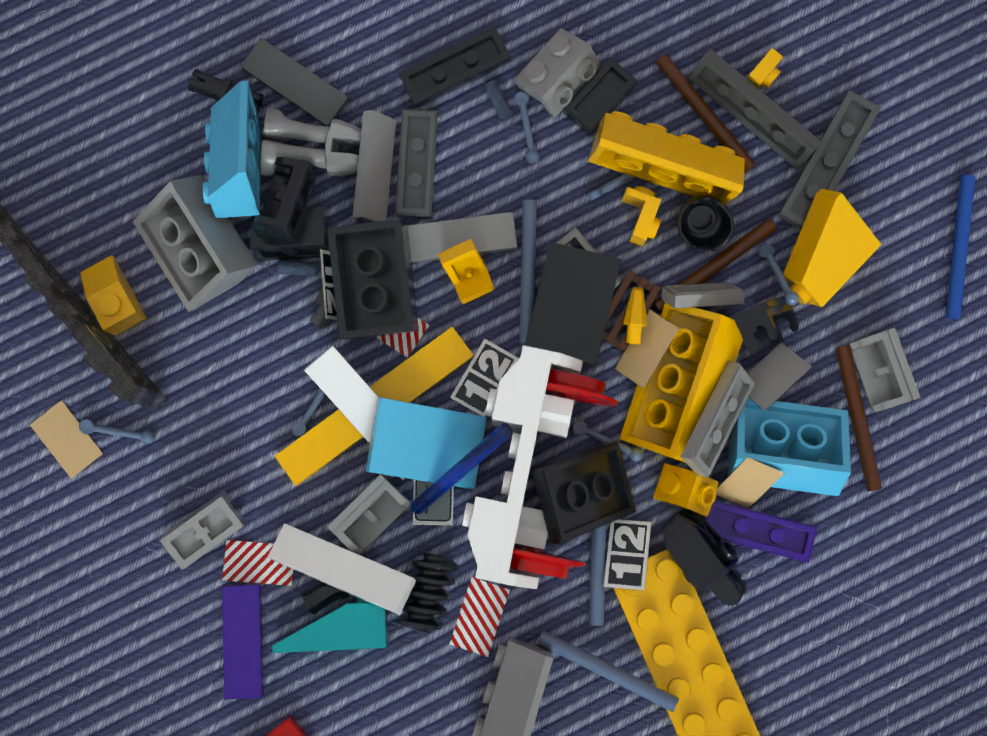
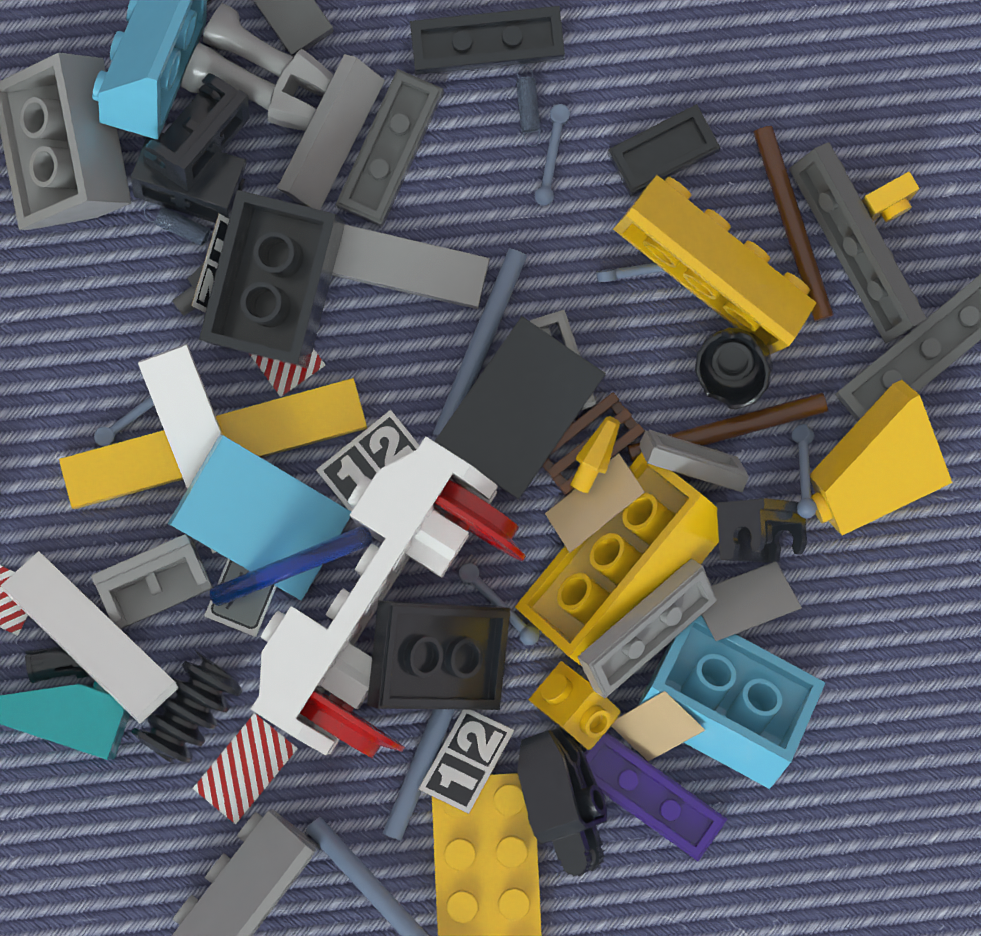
camera: 15 degrees right, 0 degrees up
(467, 271) = (399, 313): yellow bracket -> none
(559, 71) = (621, 97): light grey bracket -> none
(647, 223) = (659, 338): yellow bracket -> none
(858, 418) = (837, 698): reddish brown bar -> none
(884, 370) = (893, 648): light grey hinge -> none

